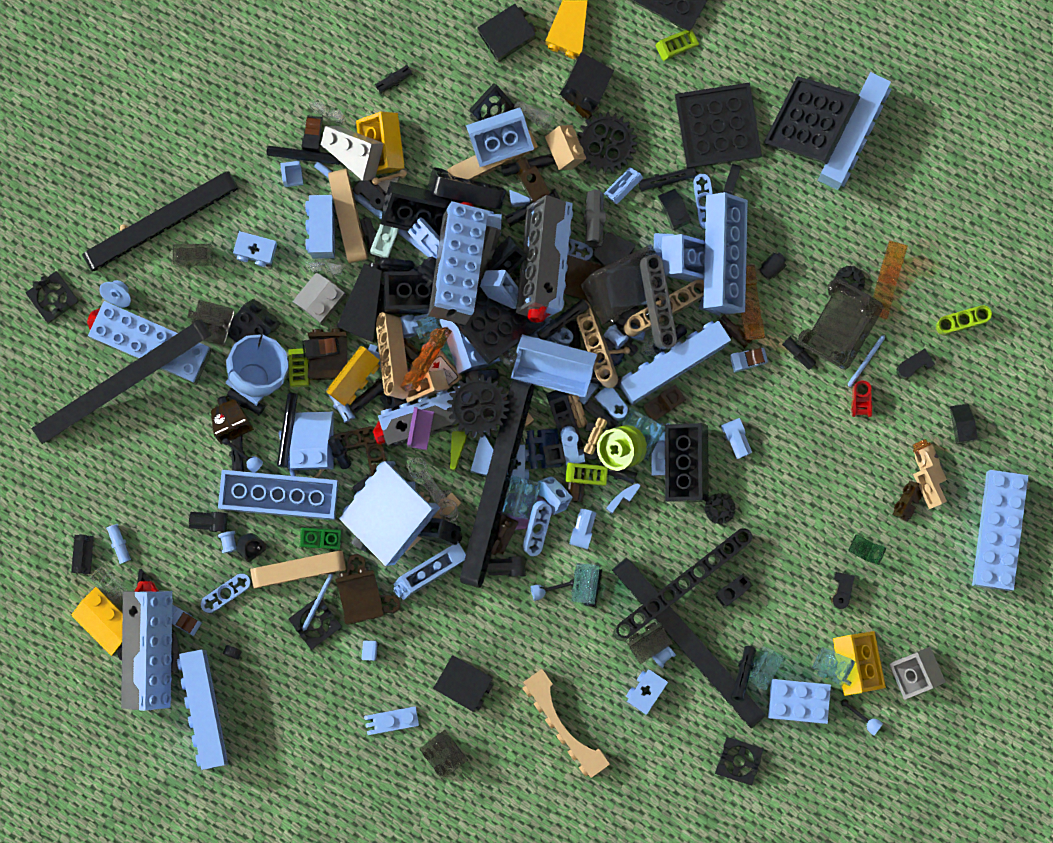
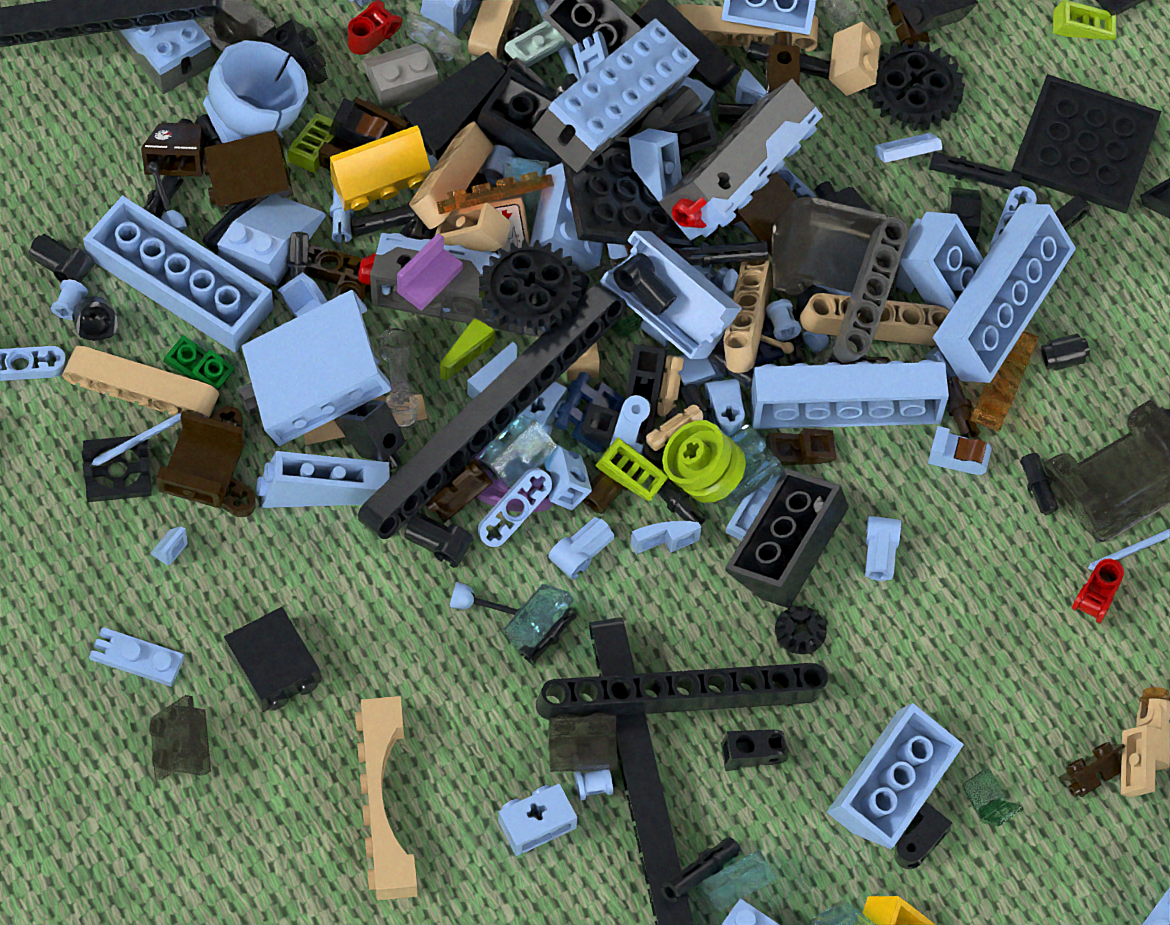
camera: 25 degrees right, 20 degrees down
(278, 414) = (247, 170): none -> dark brown panel
(288, 275) = (372, 28): none -> red piece
(354, 471) = (301, 295): none -> light blue panel
(532, 366) = (638, 277): none -> black piece
(578, 338) = (728, 279): none -> light blue arm
(594, 218) = (842, 161): dark grey piece -> none
(813, 566) = (895, 777): none -> light blue slope

